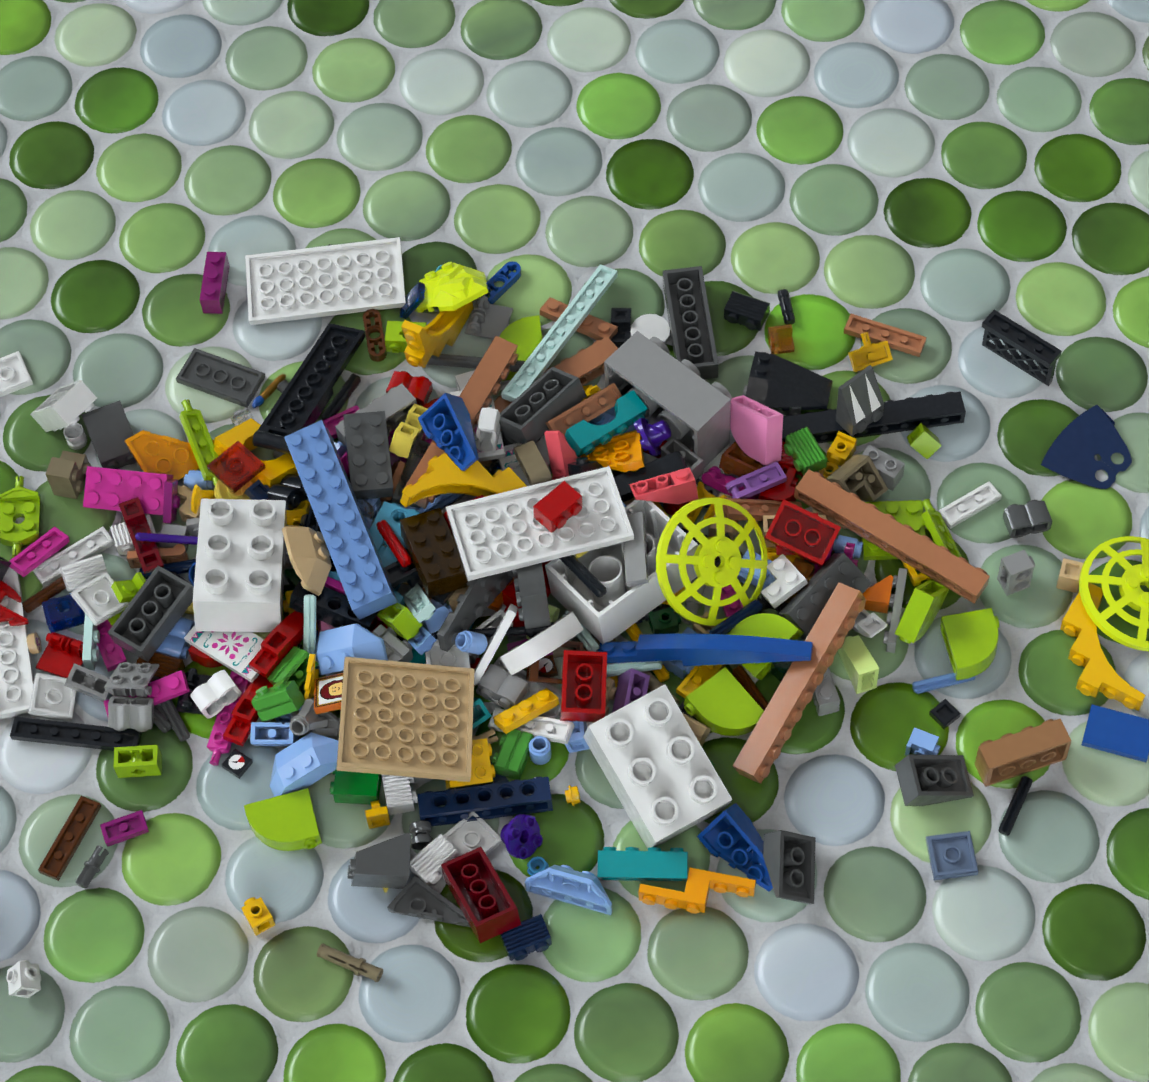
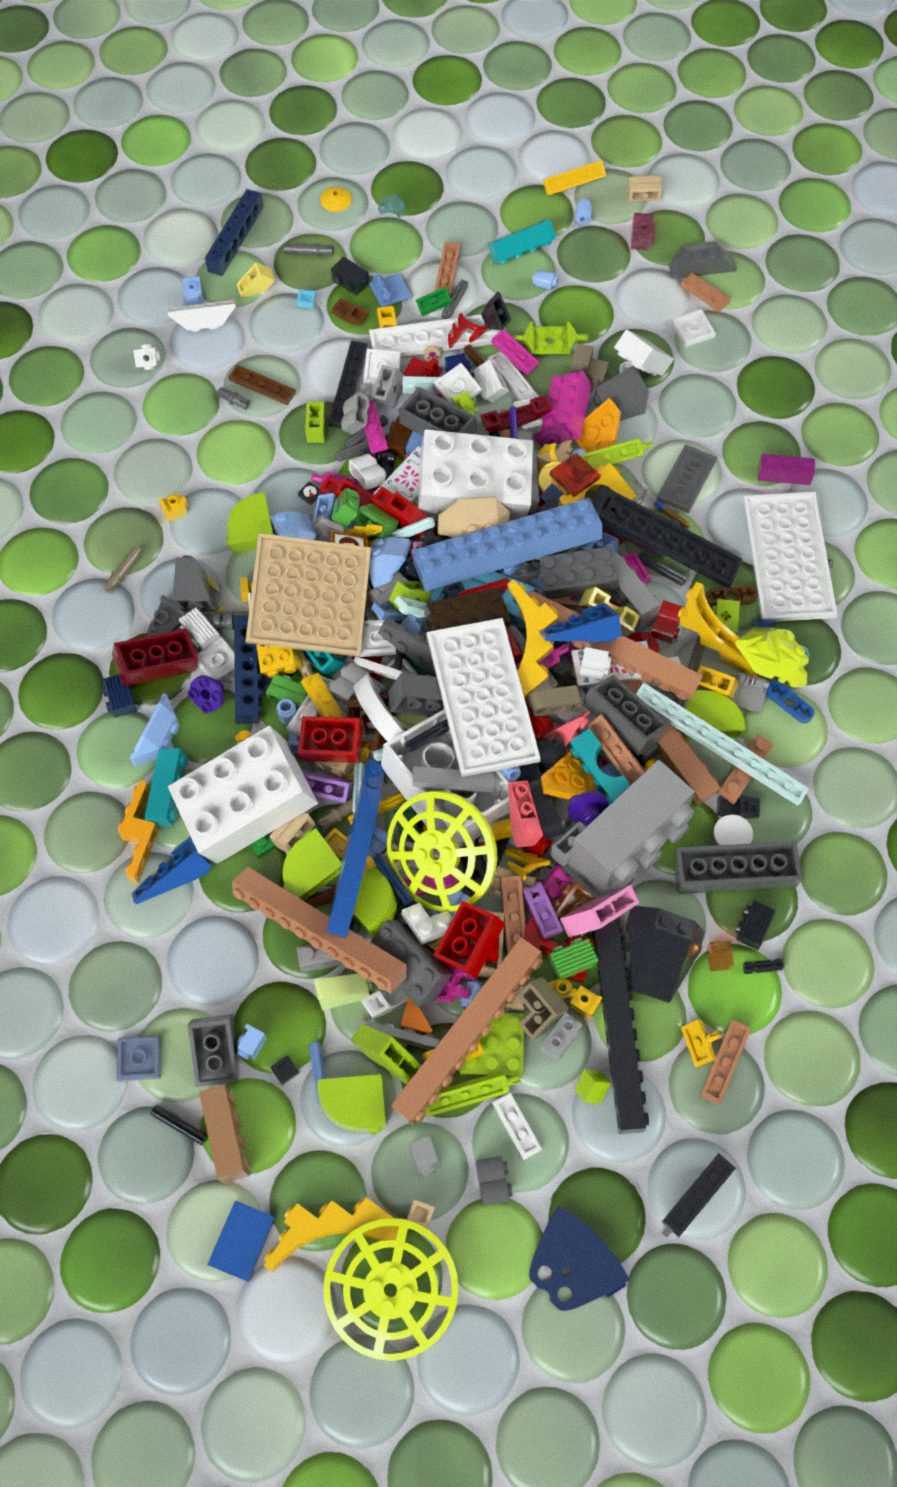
camera: 90 degrees right, 5 degrees up
(124, 828) = (262, 418): magenta plate -> none
(131, 679) = (383, 410): light grey hinge -> none
(471, 642) = (383, 650): light blue brick -> none
(484, 337) = (718, 682): none -> yellow brick
(534, 862) = (183, 704): dark azure plate -> none
(558, 507) = (490, 706): red brick -> none
(791, 865) = (140, 906): dark grey slope -> none
(859, 402) = (620, 1012): dark grey slope -> none

